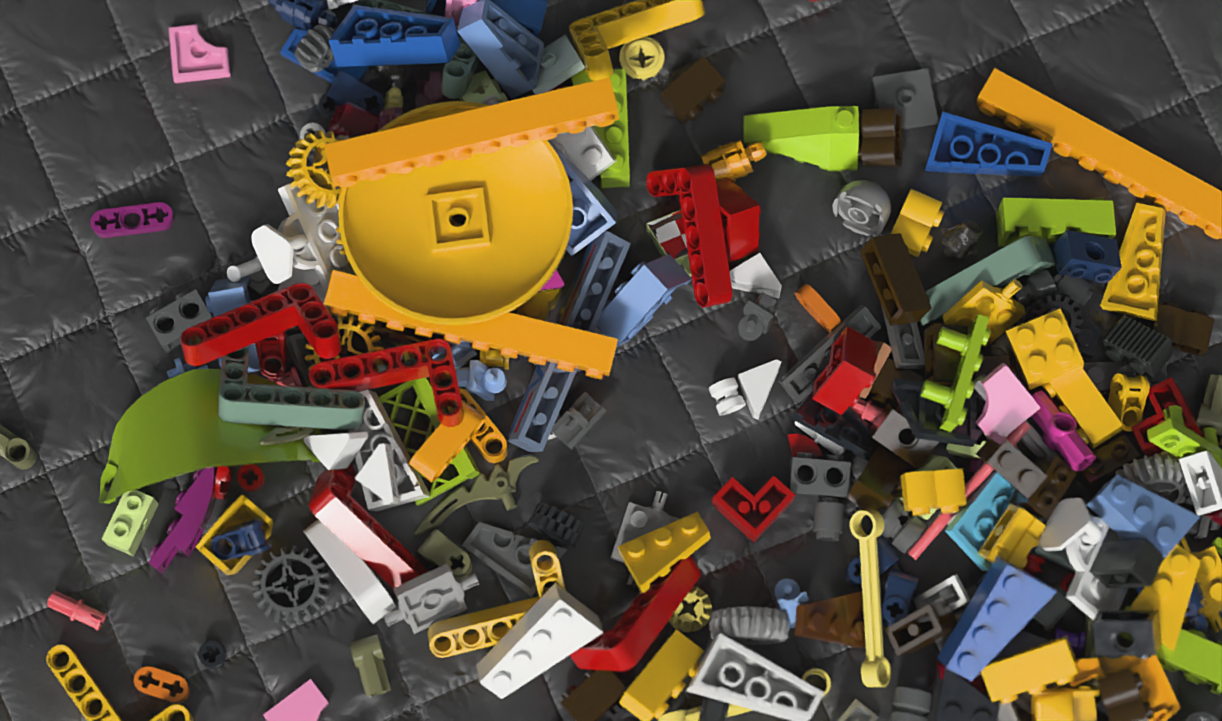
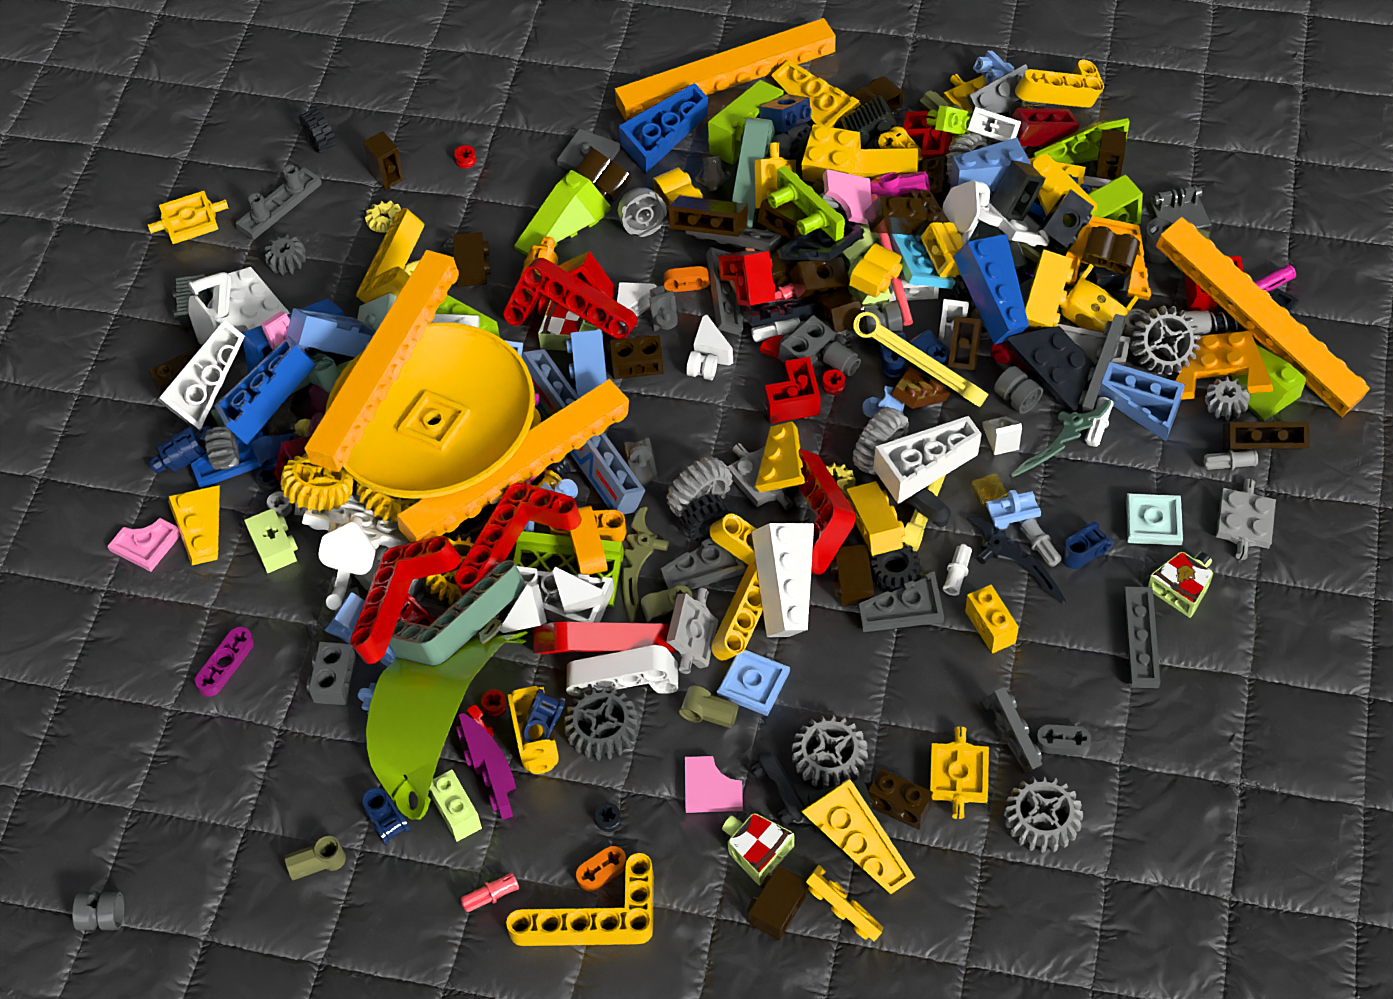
camera: 50 degrees left, 20 degrees down
(82, 473) = (386, 819): none -> dark blue piece
(244, 84) = (198, 522): none -> yellow wing
(269, 147) = (271, 540): none -> yellowish green brick
(427, 684) = (753, 682): none -> light blue tile
(581, 497) = (699, 479): none -> light grey gear
(687, 333) = (636, 357): none -> dark brown brick
(800, 520) = (833, 389): none -> red bush

